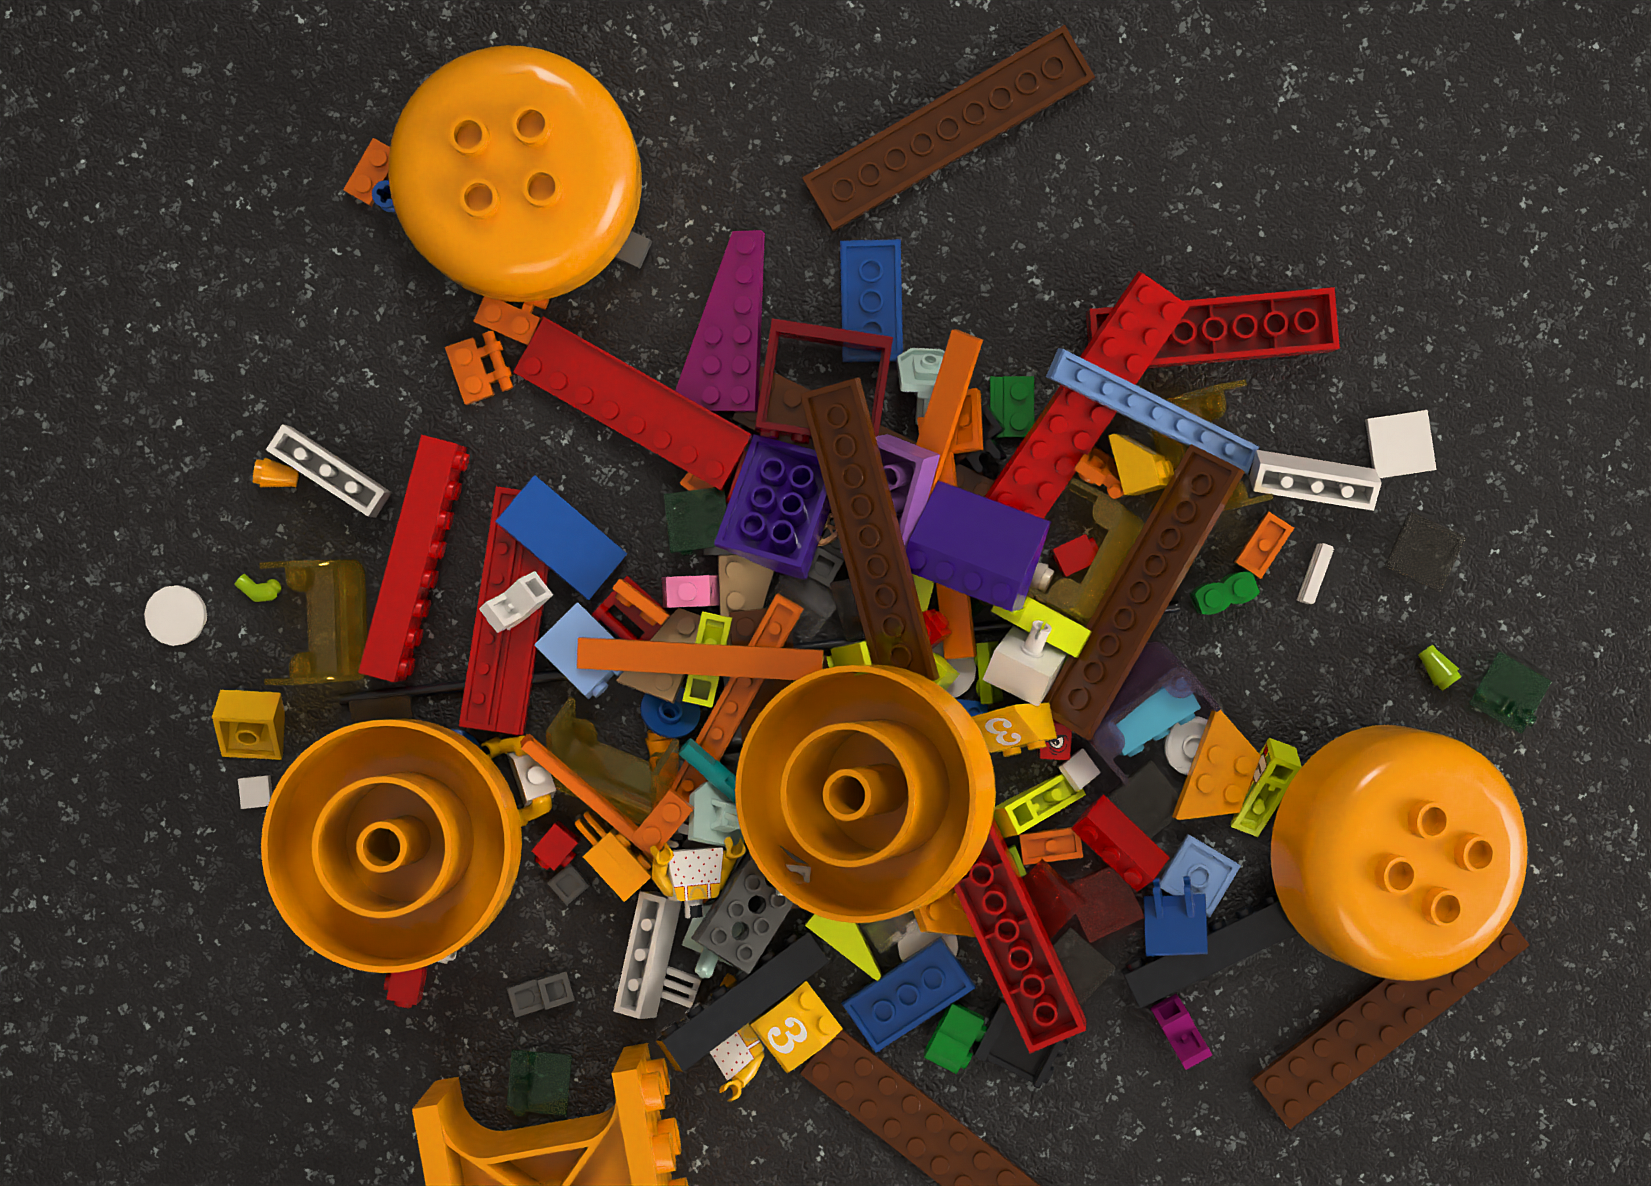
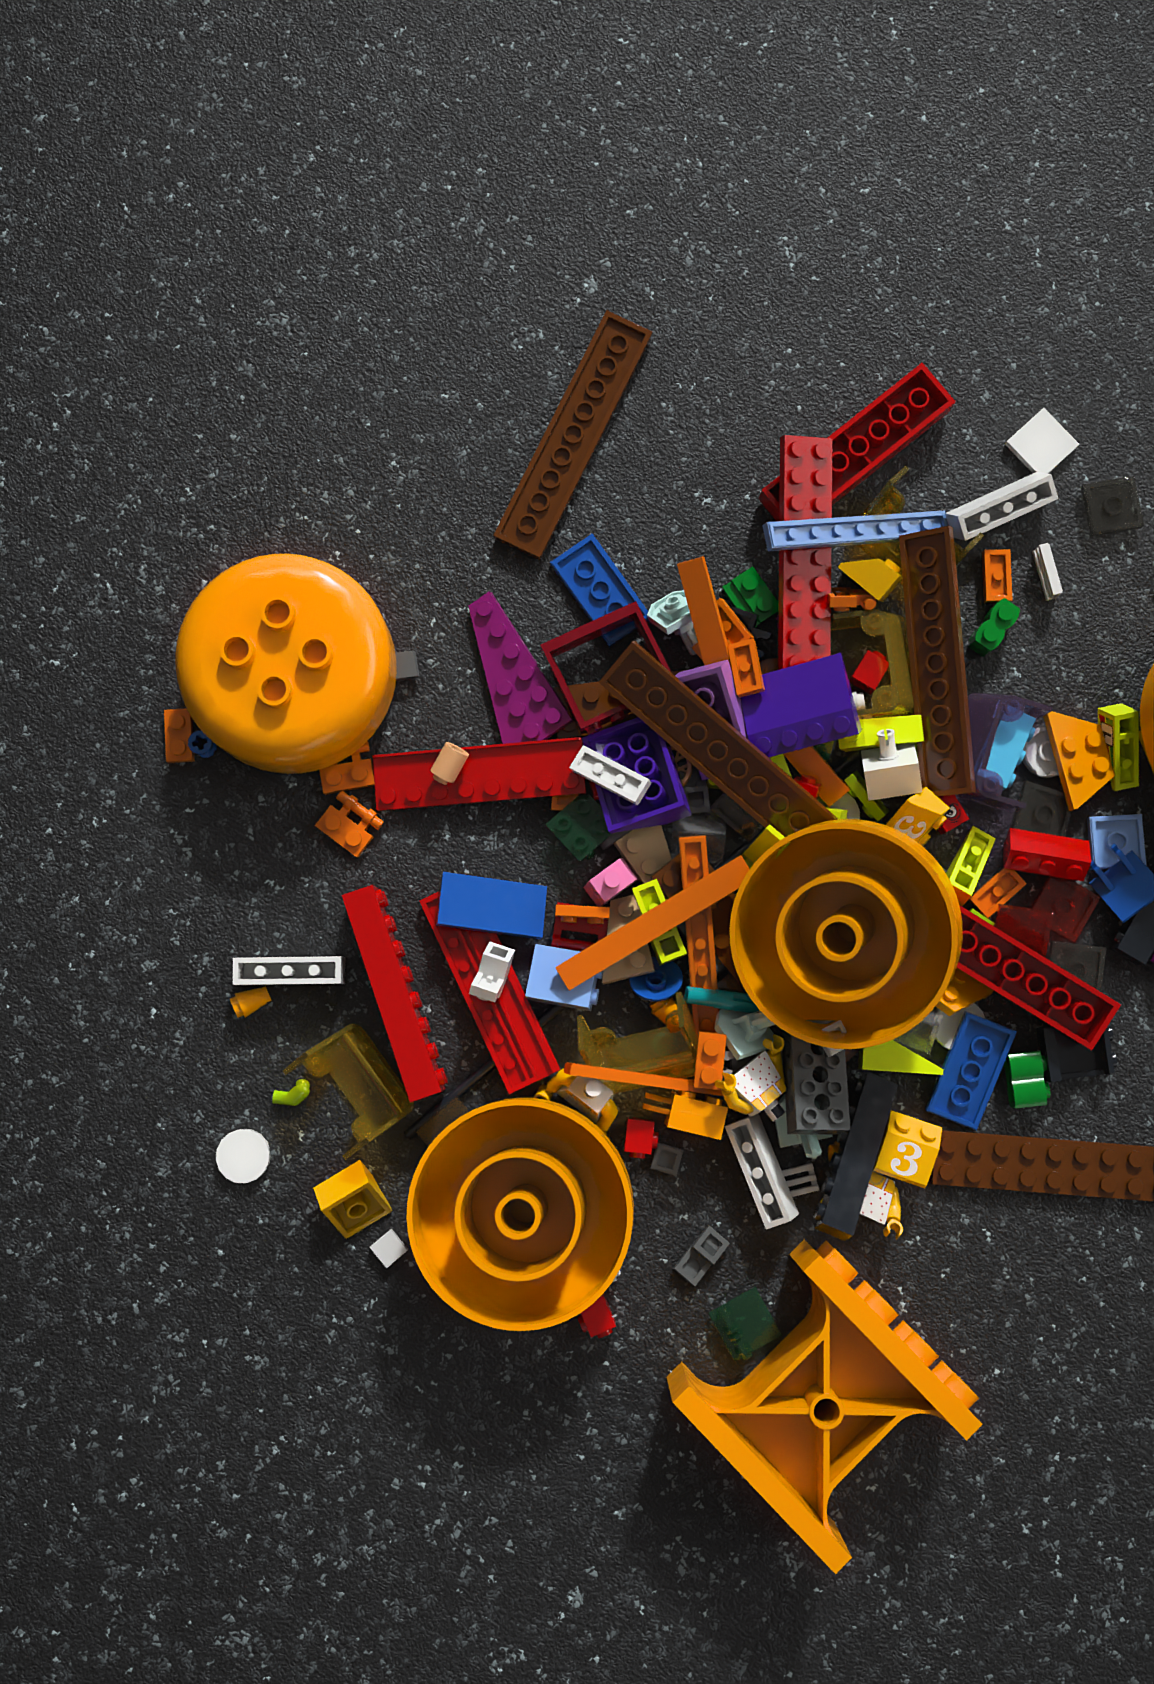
camera: 30 degrees left, 5 degrees down
(608, 374) = (449, 763): none -> light nougat brick
(752, 490) = (610, 775): none -> white plate
(952, 474) = (746, 668): none -> orange plate
(1079, 769) = (979, 823): white tile -> none

